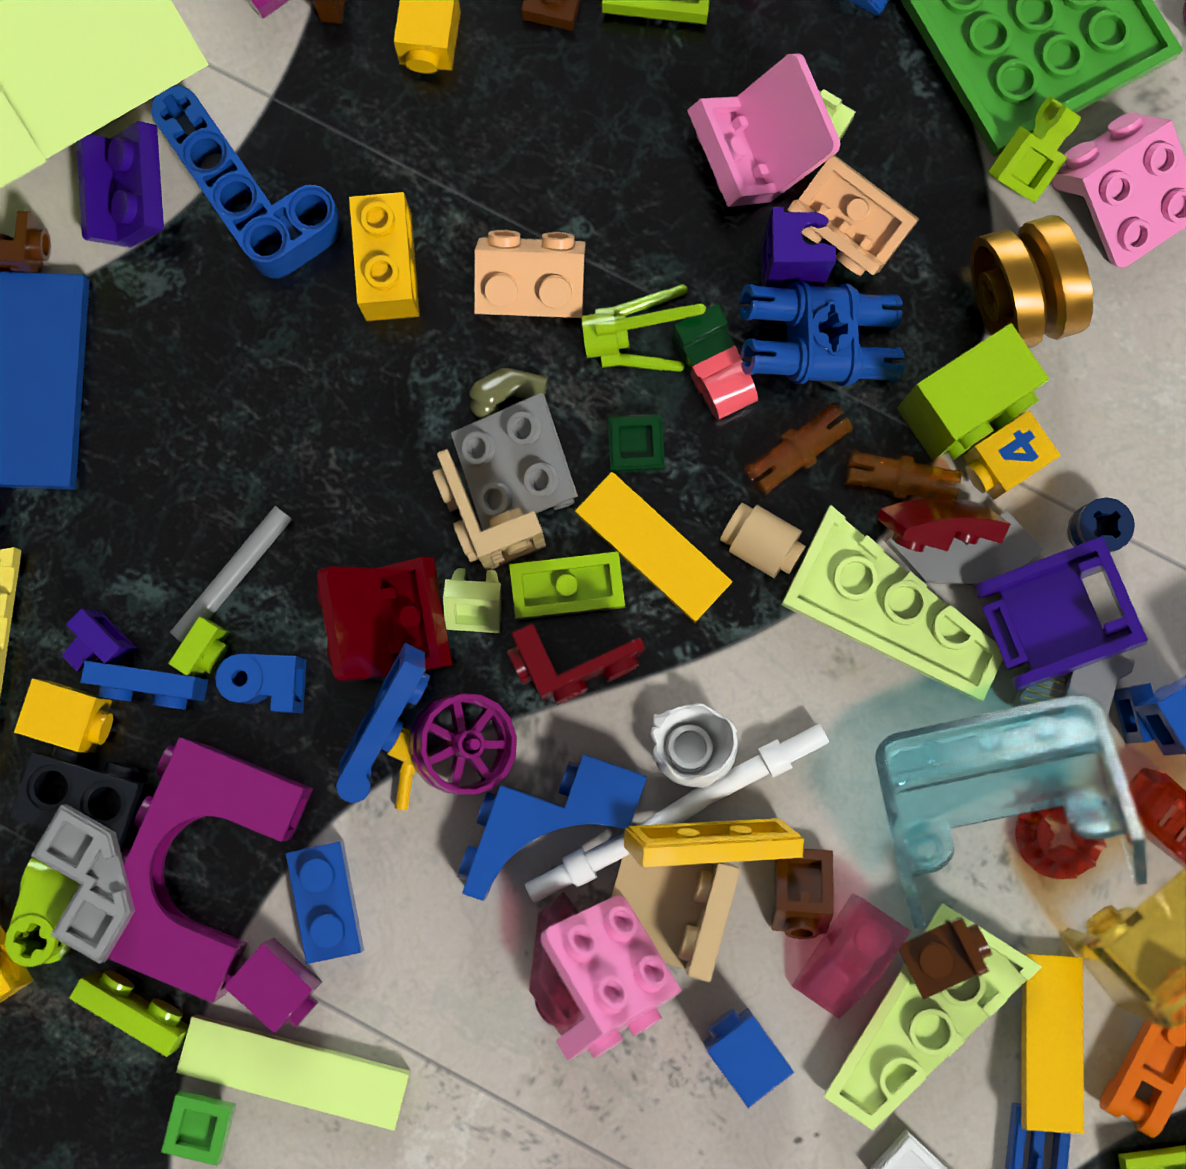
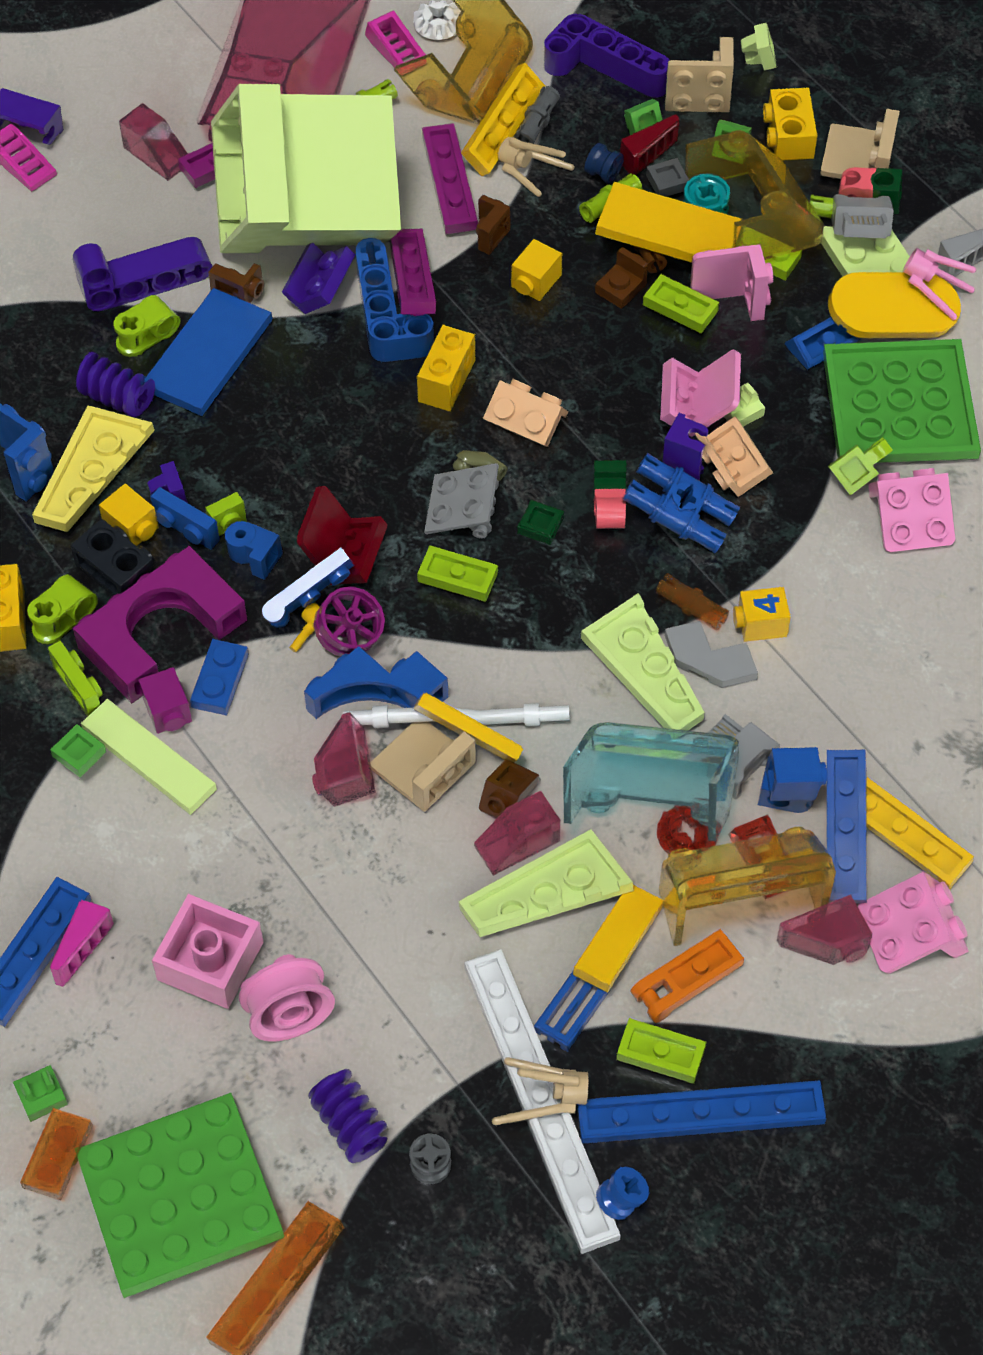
camera: 25 degrees right, 25 degrees down
(104, 899) = (97, 604): light grey tile -> none
(233, 571) = (278, 486): light grey bar -> none
(258, 121) = (412, 272): none -> magenta plate
(472, 603) = (396, 558): yellowish green tile -> none
(510, 533) = (429, 521): tan bracket -> none
(534, 665) = (439, 608): dark red bracket -> none
(609, 327) = (556, 457): lime plant -> none
(610, 974) = (367, 772): bright pink bracket -> none
(653, 547) = (521, 578): yellow tile -> none
(693, 745) = (486, 682): white hair -> none
(746, 1055) = (424, 859): blue brick -> none
(763, 540) = (587, 596): tan brick -> none
(799, 448) = (637, 562): clear orange pin -> none
(939, 521) = (690, 619): dark red slope -> none
(945, 956) = (575, 849): reddish brown bracket -> none
(979, 388) = (751, 560): lime brick -> none
(1033, 280) = (816, 522): pearl gold wheel -> none
(1050, 618) = (737, 698): dark purple container -> none
(1084, 526) = (796, 684): dark blue wheel -> none

